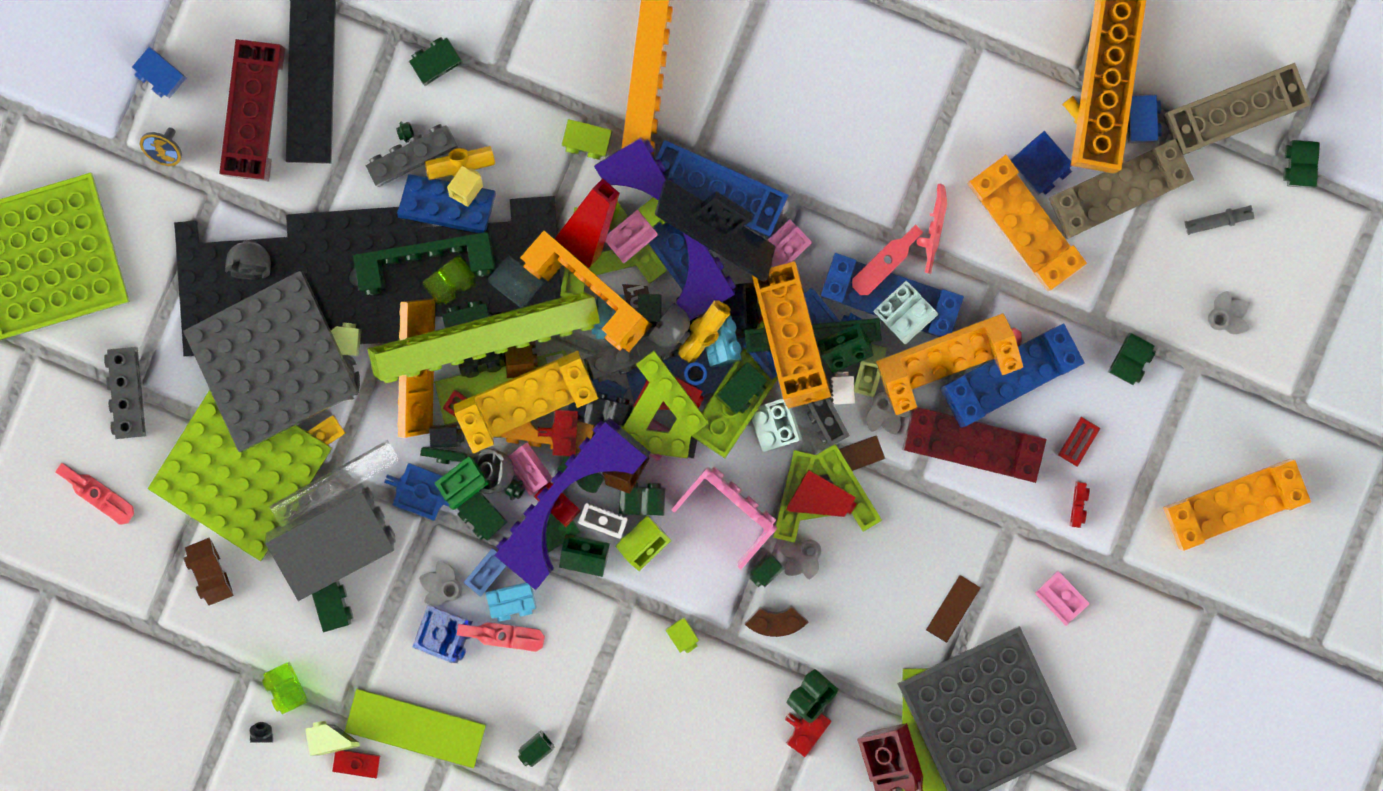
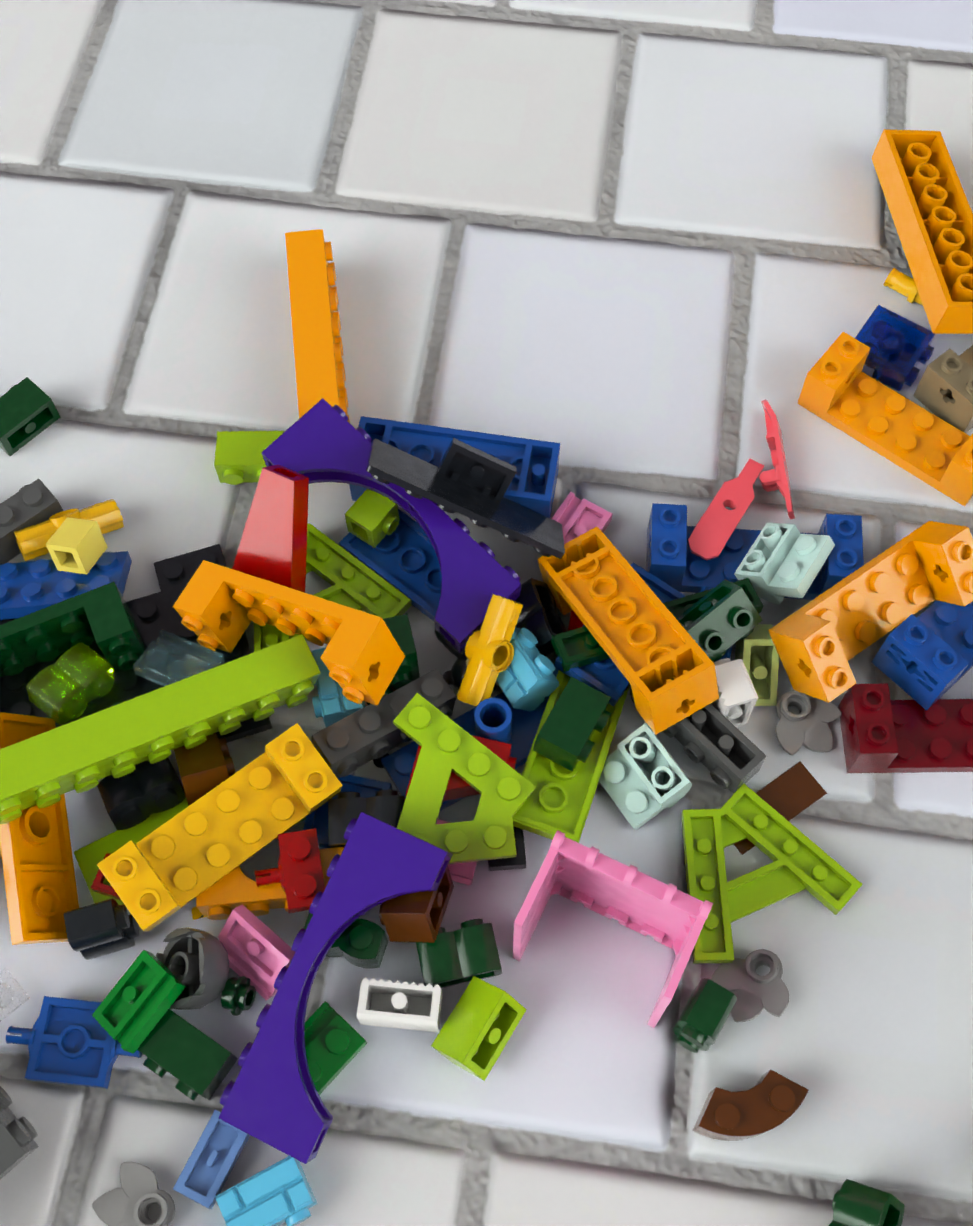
camera: 10 degrees left, 25 degrees down
(443, 456) = (99, 968): dark green plate -> none
(563, 509) = (329, 1005): red plate -> none
(584, 555) = (380, 1077): dark green brick -> none
(630, 236) = (343, 561): bright pink plate -> none
(671, 328) = (435, 654): dark grey cylinder -> none
(683, 635) = (594, 1181): lime brick -> none
(821, 497) = (755, 867): red slope -> none

